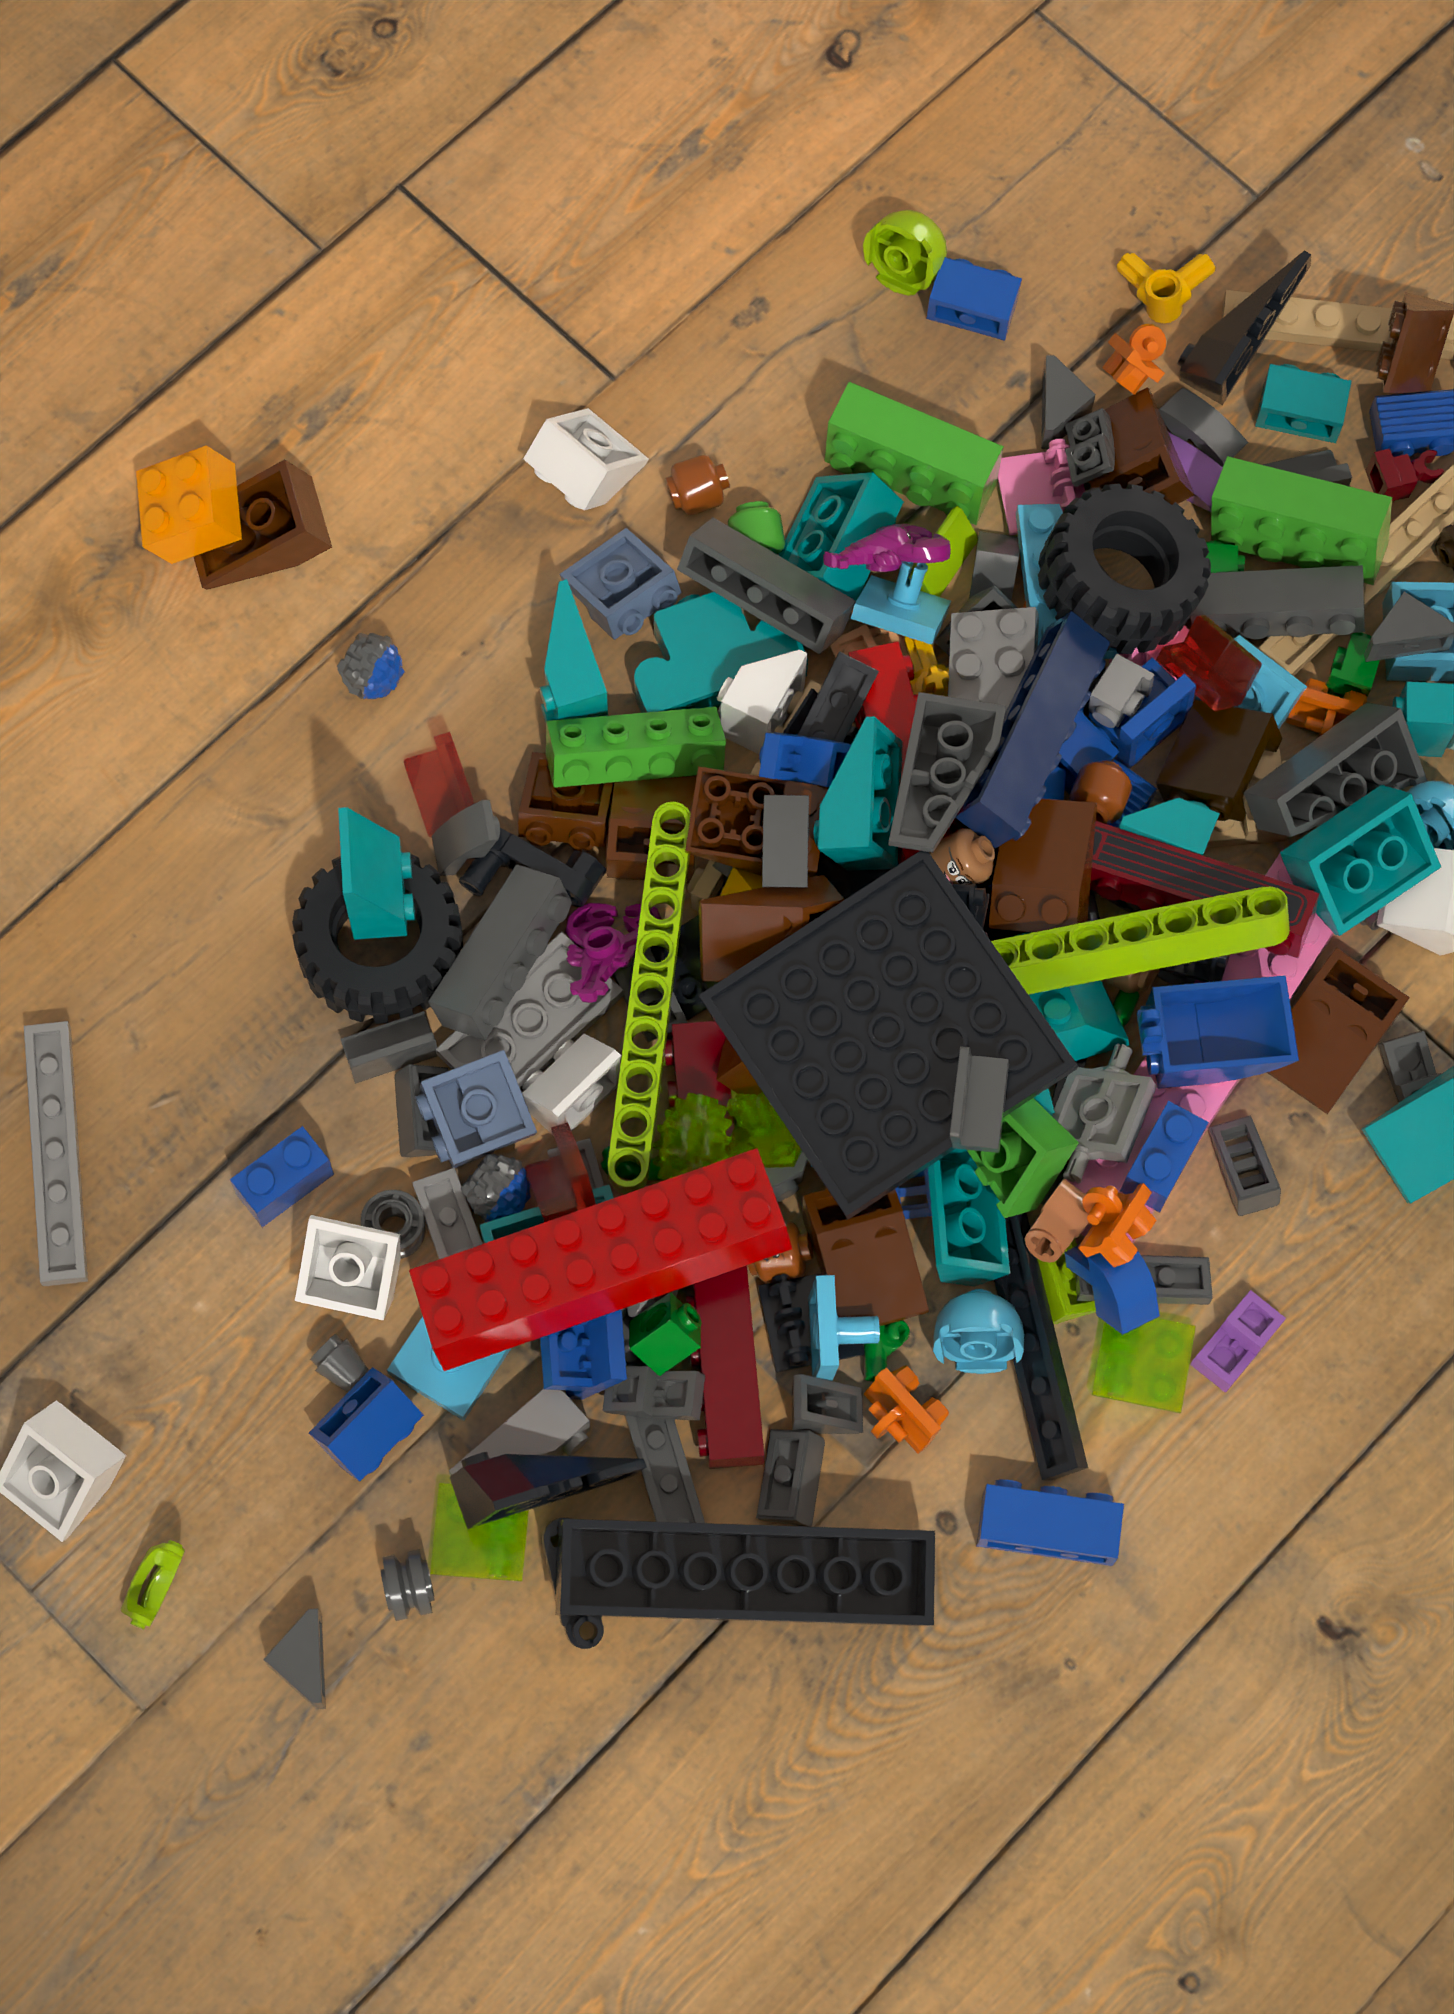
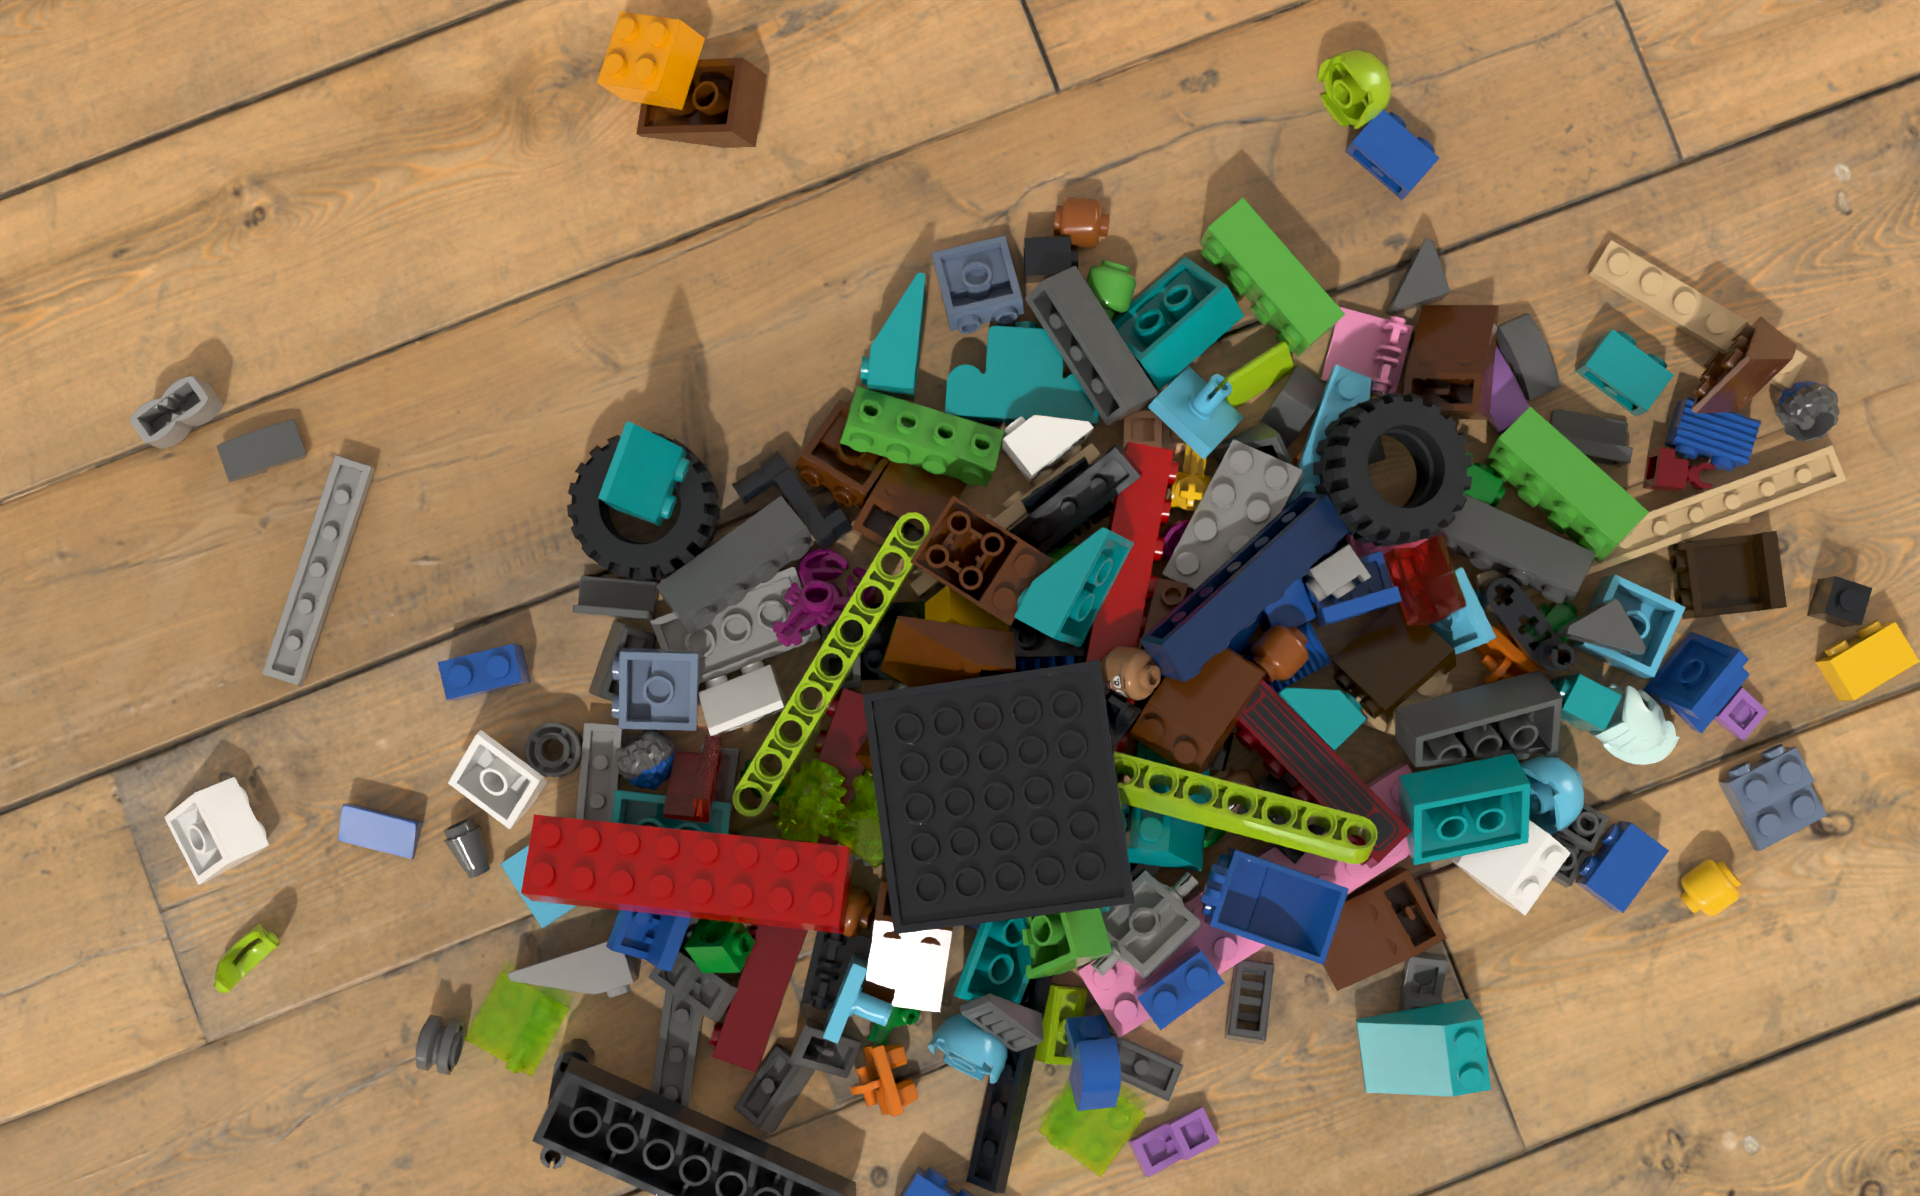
camera: 25 degrees right, 15 degrees up
(238, 1393) = (379, 830): none -> slope
(301, 1658) = (336, 1066): dark grey slope -> none
(366, 1424) = (462, 904): blue brick -> none
(371, 666) = (741, 268): piece -> none
(438, 783) = (753, 396): clear red panel -> none
(465, 836) = (750, 454): dark grey slope -> none
(519, 1482) = (545, 1017): black wedge -> none
(583, 458) = (999, 157): white slope -> none
(673, 526) = (1047, 257): none -> black brick
(785, 841) = (991, 596): dark grey slope -> none
(801, 758) = (1045, 523): blue brick -> none
(890, 546) = (1209, 361): magenta animal -> none
(943, 762) = (1154, 587): dark grey wedge -> none
(979, 1102) = (1039, 899): dark grey panel -> none
(1004, 1276) = (1008, 1021): none -> dark grey slope
(1058, 1224) = (1074, 999): nougat piece -> none
(1090, 447) = (1422, 341): dark grey slope -> none
(1111, 1218) = (1108, 1028): orange hips -> none
(1133, 362) = (1498, 274): orange hips -> none
(1164, 282) = (1552, 207): yellow axle -> none
(1230, 344) = (1583, 297): black wedge -> none
(1311, 653) = (1517, 605): none -> black beam

